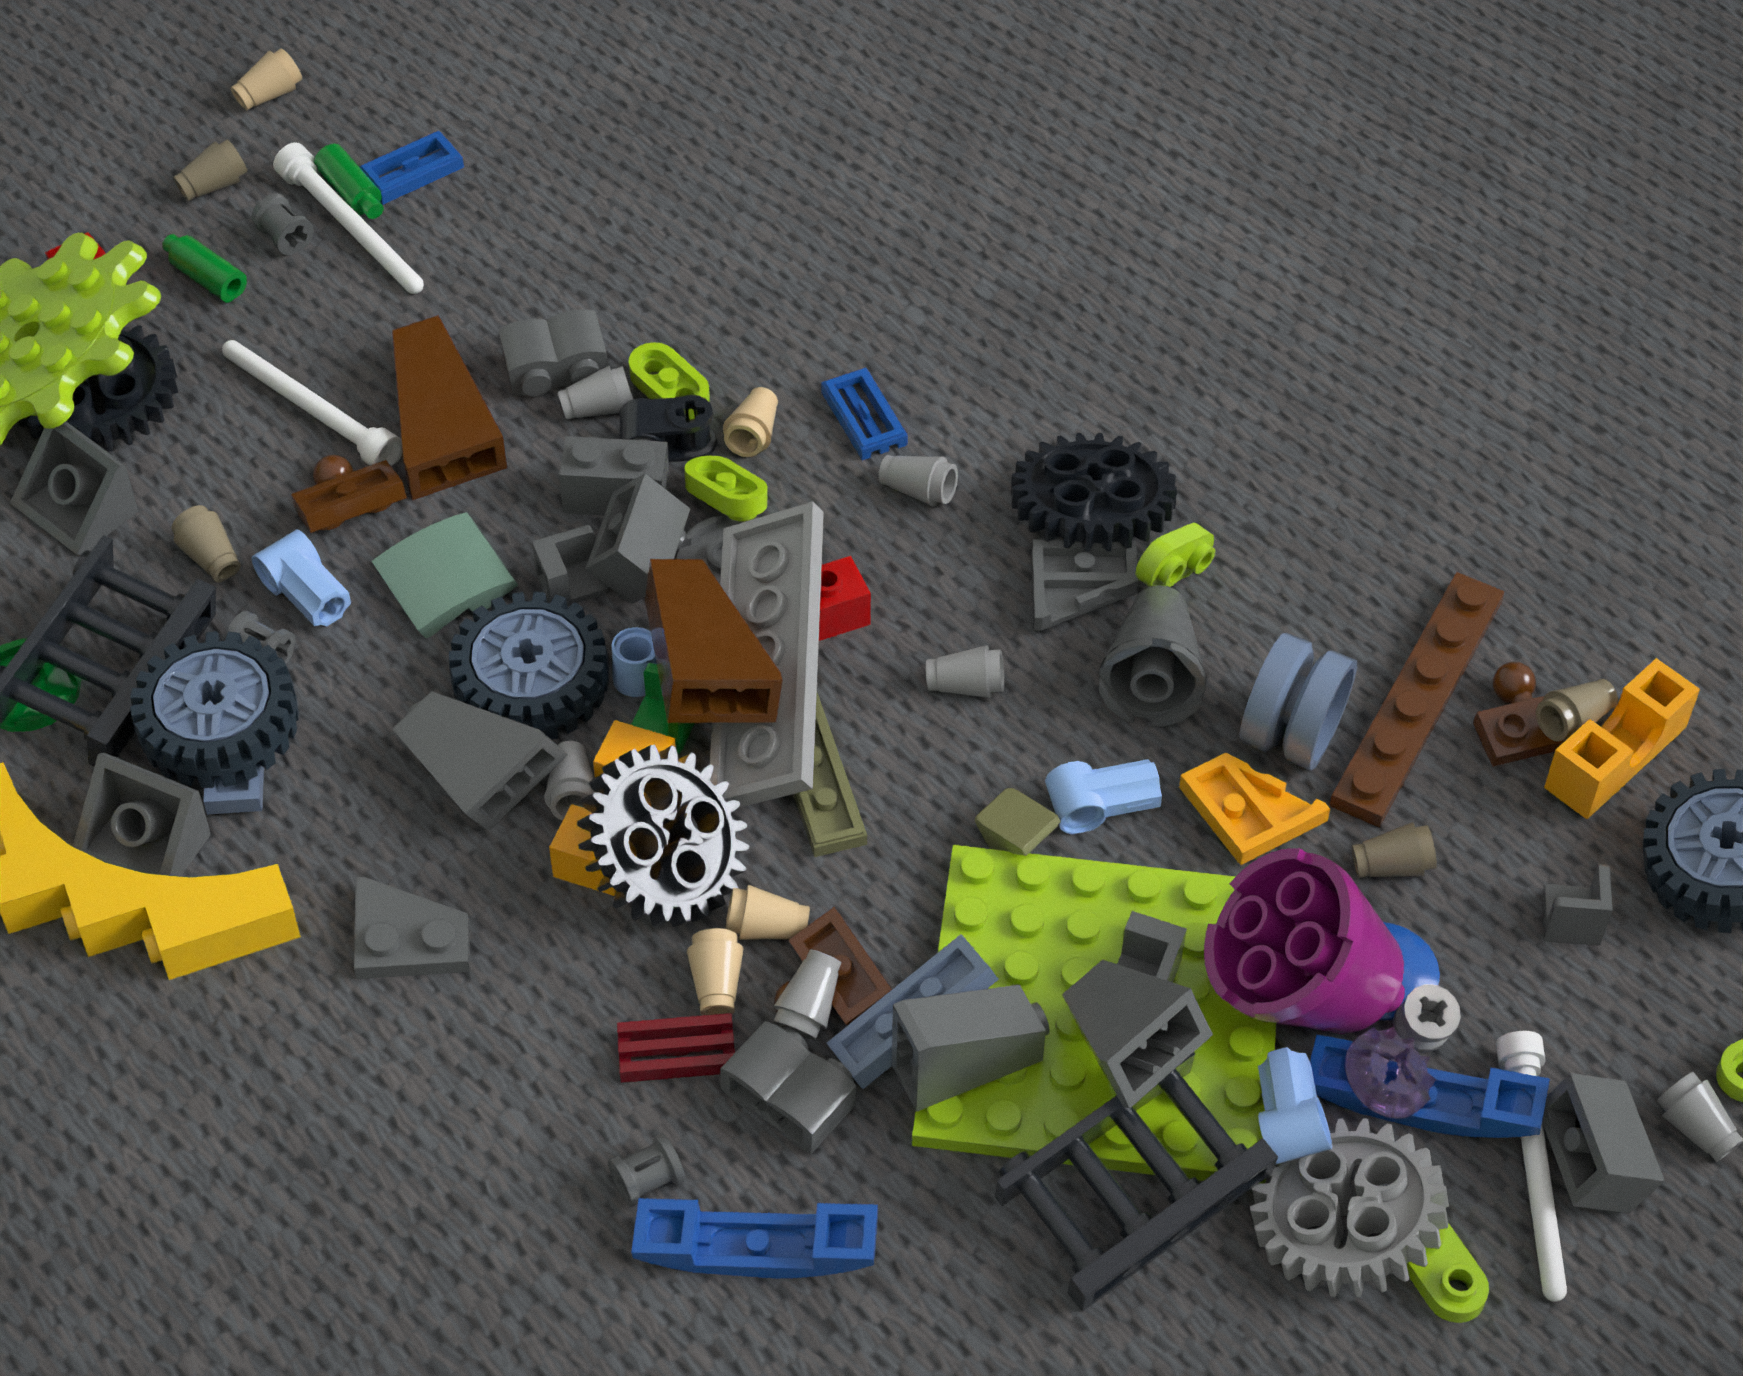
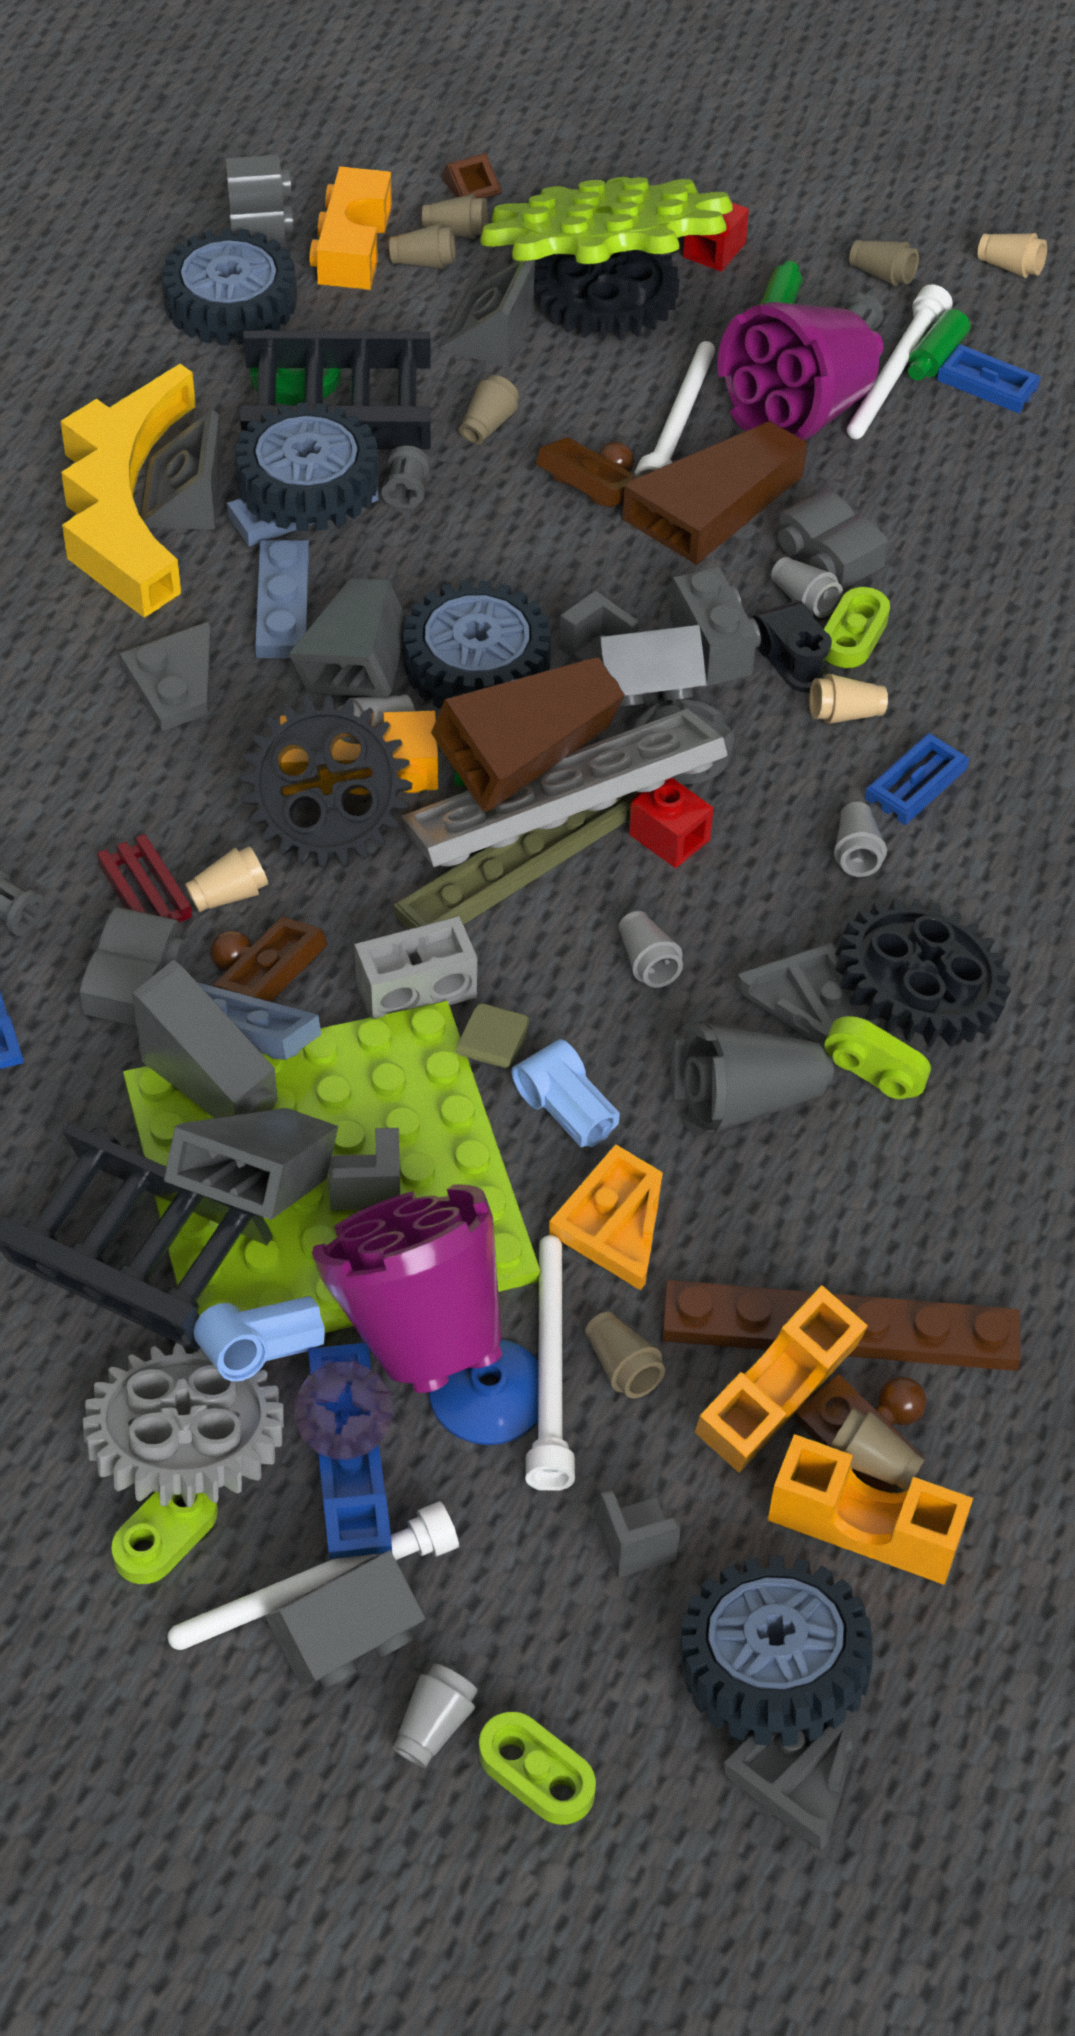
camera: 65 degrees right, 0 degrees up
(296, 571) = (489, 470): light blue piece -> none
(345, 286) = (797, 365): none -> magenta cone
(355, 805) = (281, 596): none -> sand blue plate
(444, 572) = (548, 561): sand green slope -> none
(726, 487) = (751, 703): lime plate -> none
(763, 915) = (300, 889): tan cone -> none
(809, 995) = (217, 944): light grey cone -> none
(921, 849) = (416, 968): none -> light grey brick
(1297, 701) = (741, 1200): sand blue wheel -> none
(1427, 1029) = (441, 1443): light grey wheel -> none
(1463, 713) = (782, 1380): none -> light orange arch
(1479, 944) = (550, 1461): none -> white piece

